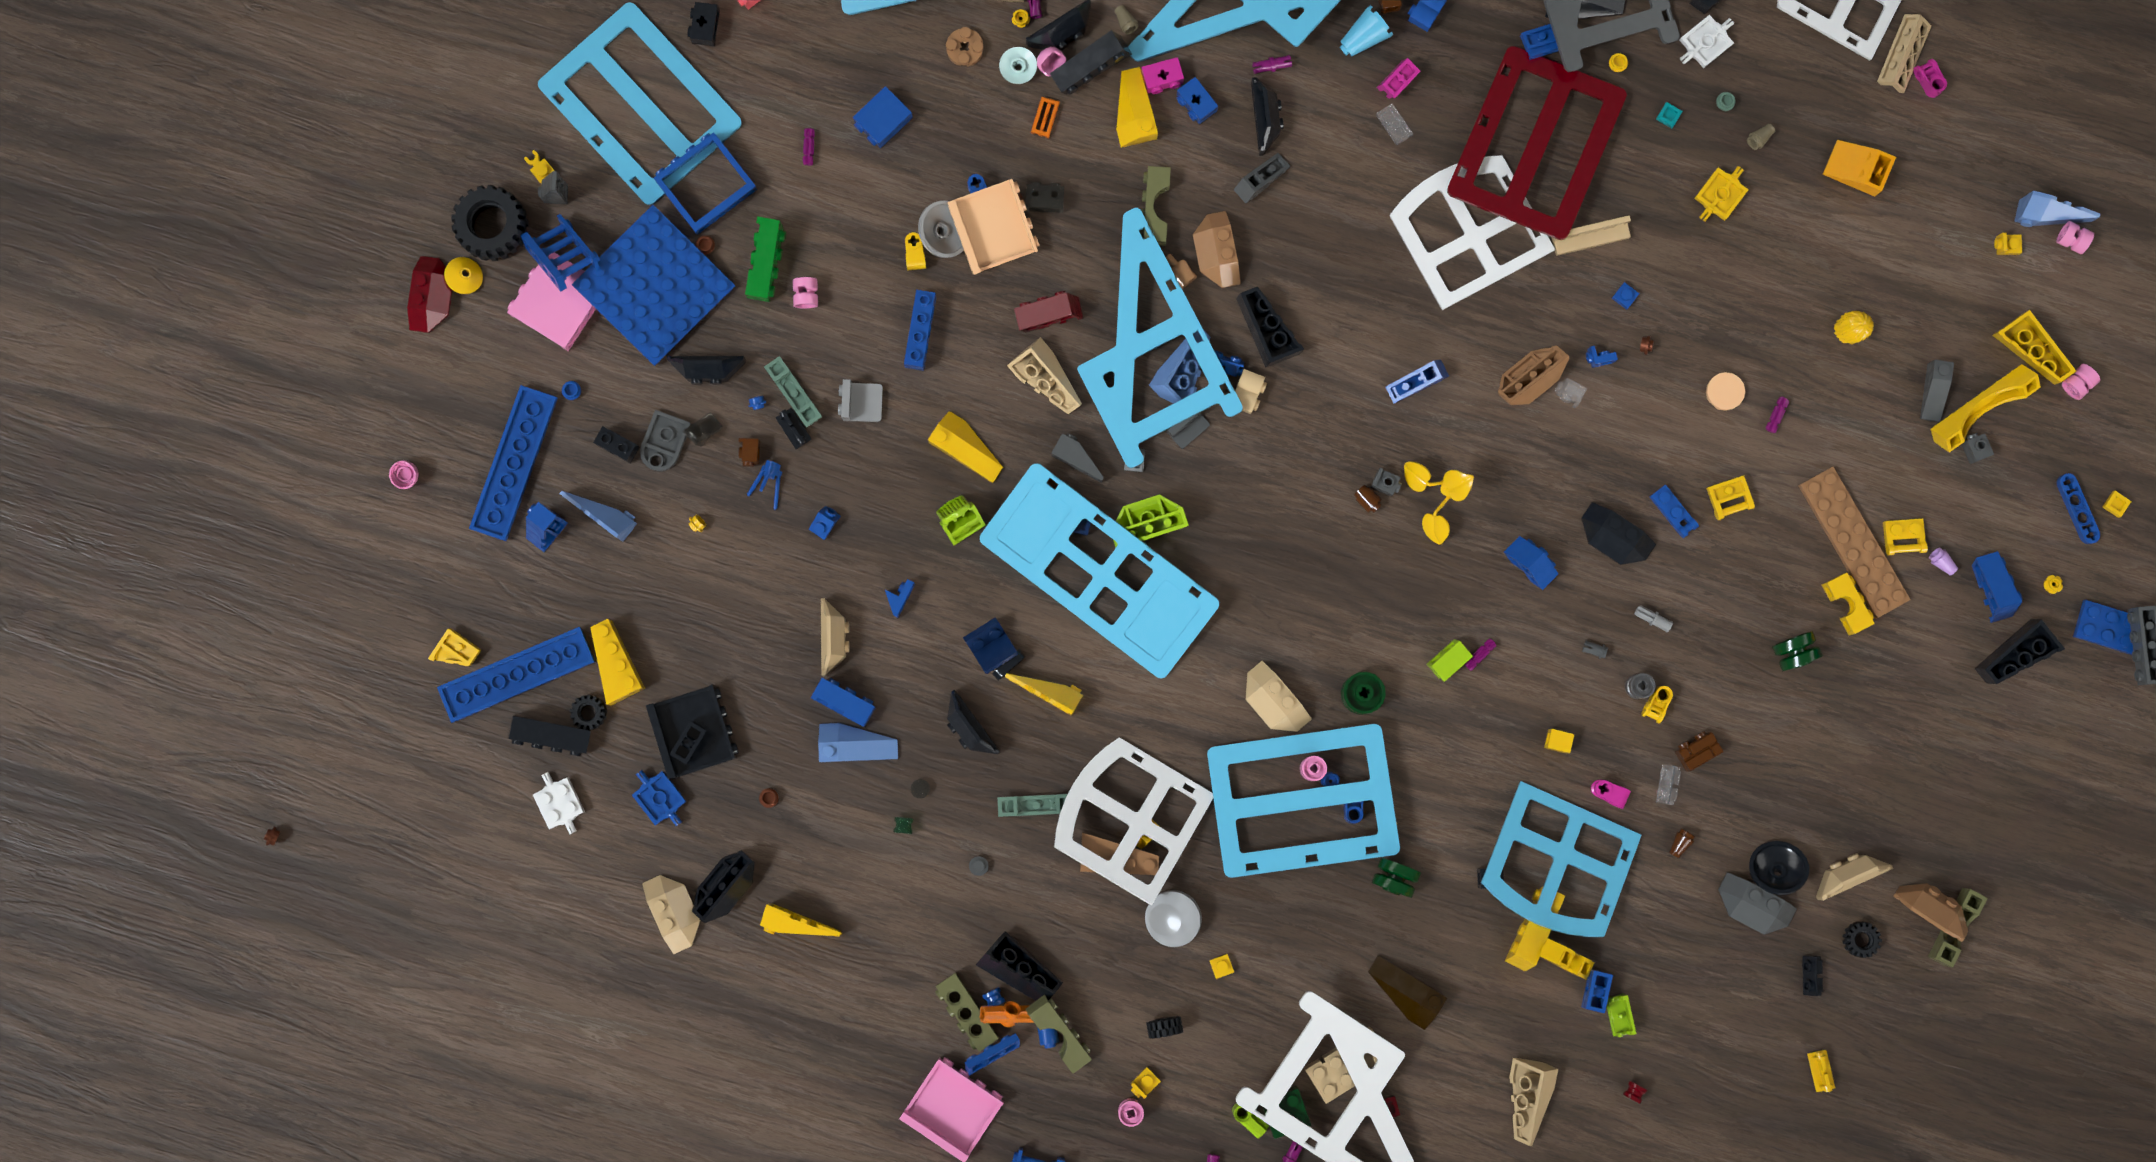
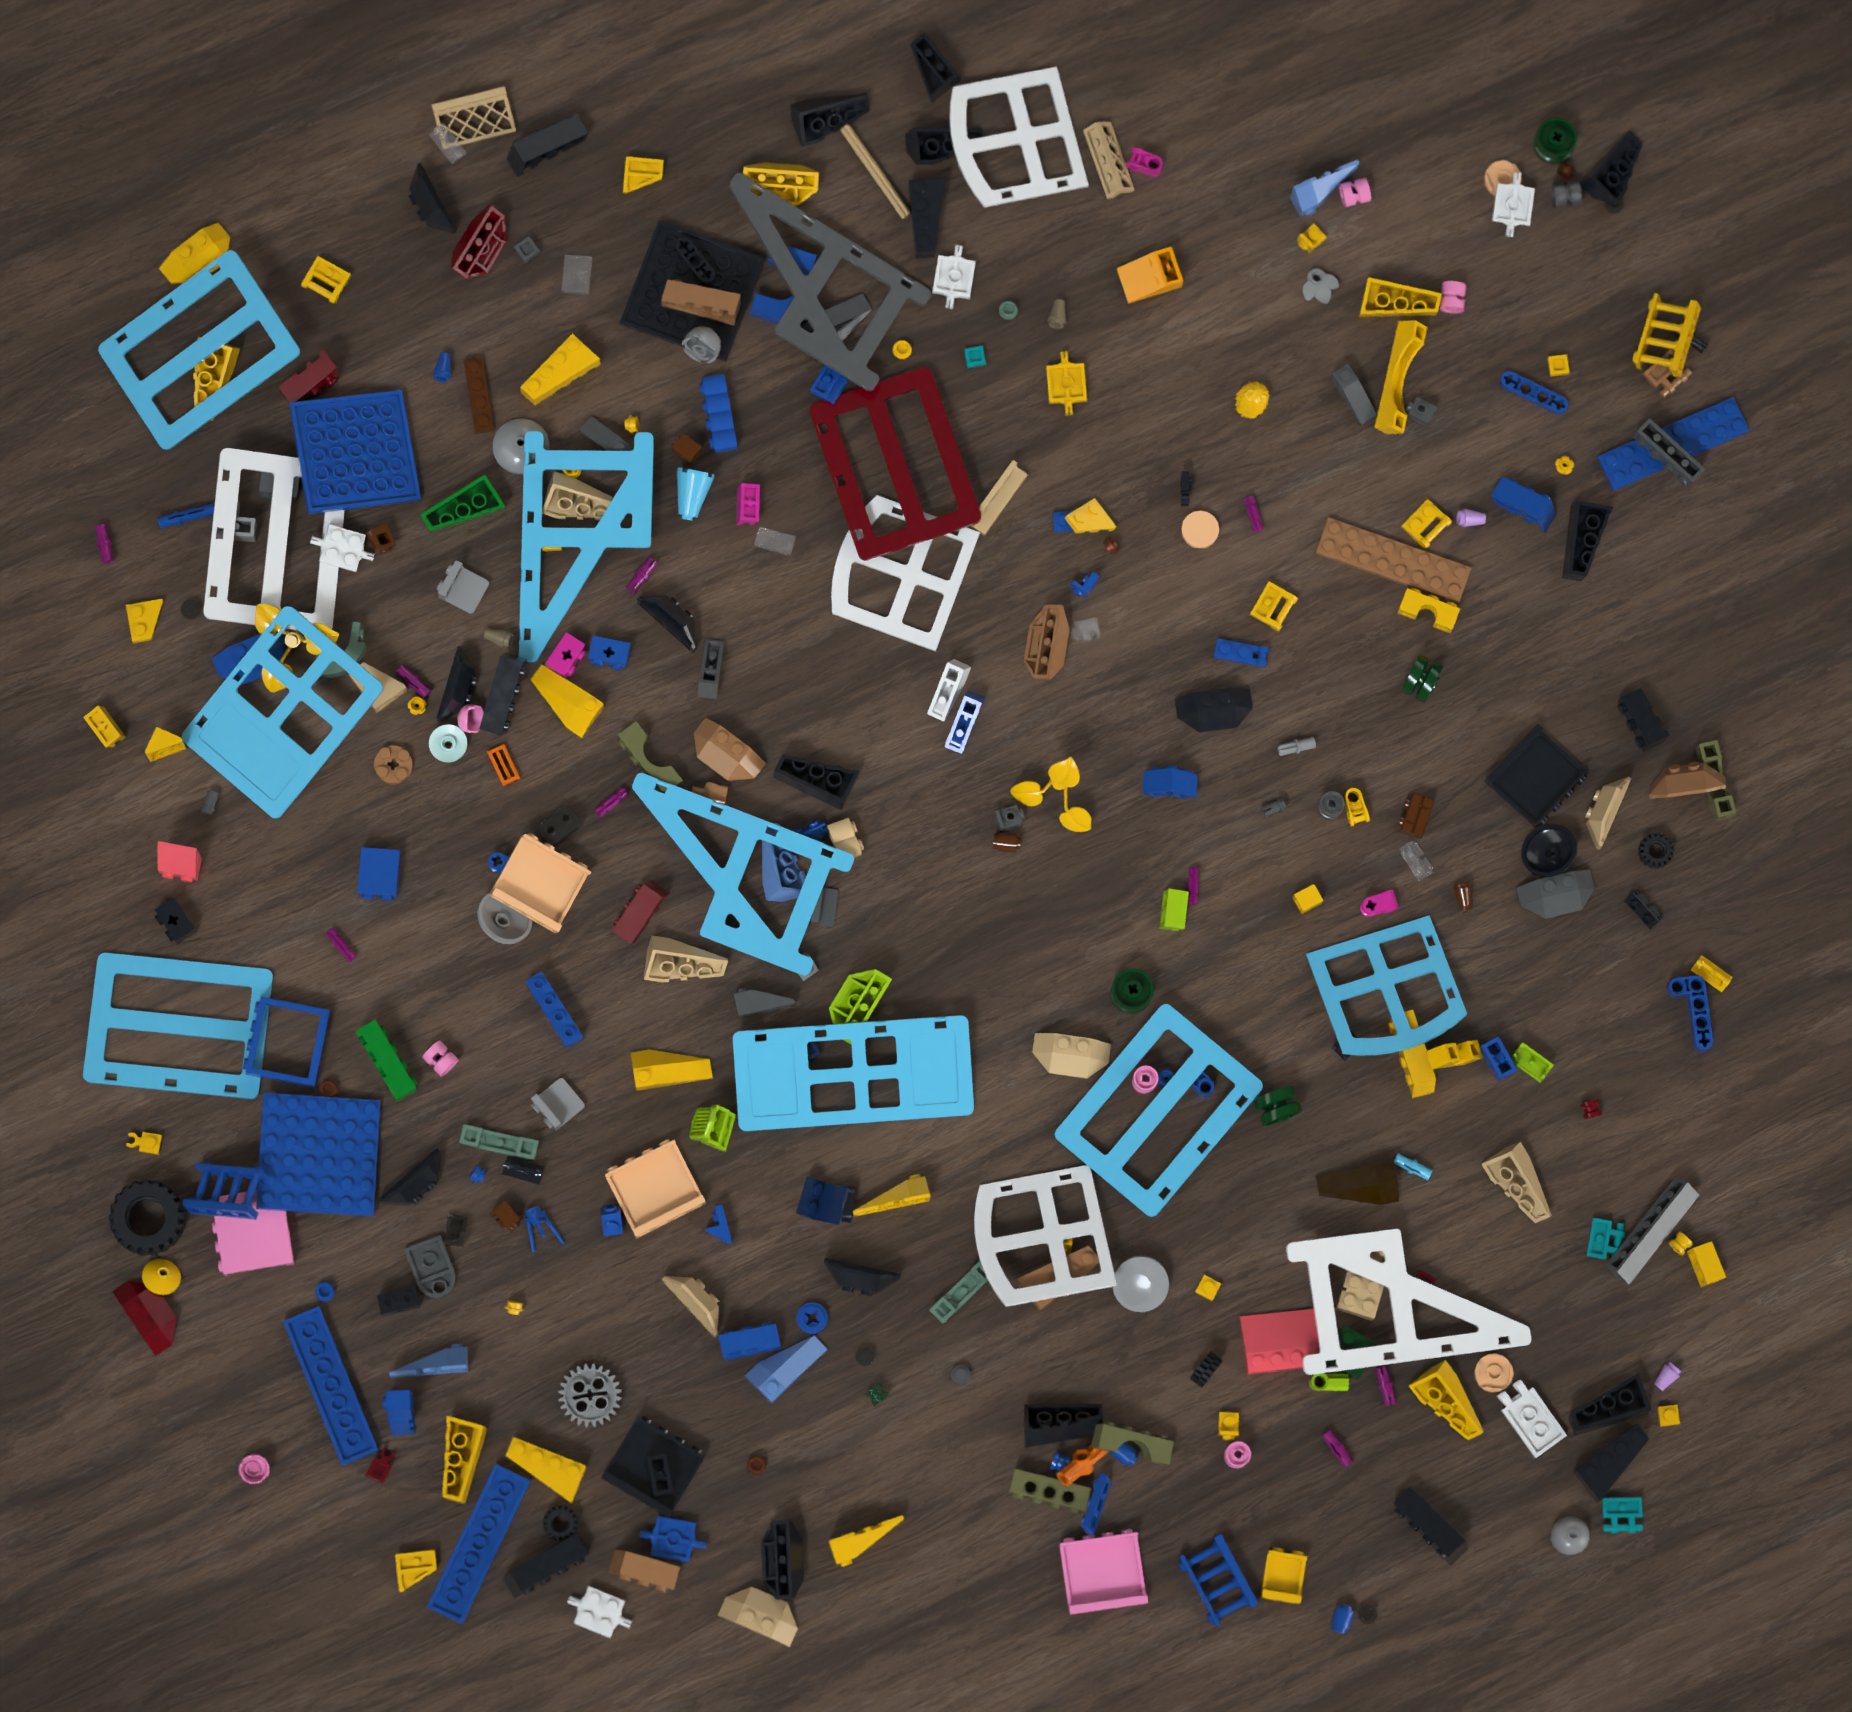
camera: 50 degrees left, 5 degrees down
(494, 555) = (380, 1468): none -> dark red plate
(553, 189) = (173, 1149): dark grey slope -> none
(558, 600) = (463, 1450): none -> yellow wedge
(616, 802) = (644, 1570): none -> medium nougat wedge
(702, 623) = (592, 1413): none -> light grey gear
(877, 526) = (654, 1188): none -> light nougat panel
(898, 720) = (821, 1317): none -> blue gear
(914, 254) = (499, 957): yellow piece -> none
(1100, 213) = (611, 802): none -> magenta axle
(1239, 1054) = (1278, 1340): none -> coral slope
(1427, 346) = (948, 689): none -> white slope
(1458, 1013) = (1413, 1166): none -> medium azure pin
(1648, 310) = (1090, 518): none -> yellow wing
(1746, 347) = (1185, 484): none -> black plate
(1780, 1088) = (1694, 1013): none -> blue beam
(1818, 803) = (1536, 777): none -> black panel
(1940, 831) = (1642, 720): none -> black wedge
(1982, 289) = (1319, 289): none -> light grey plate

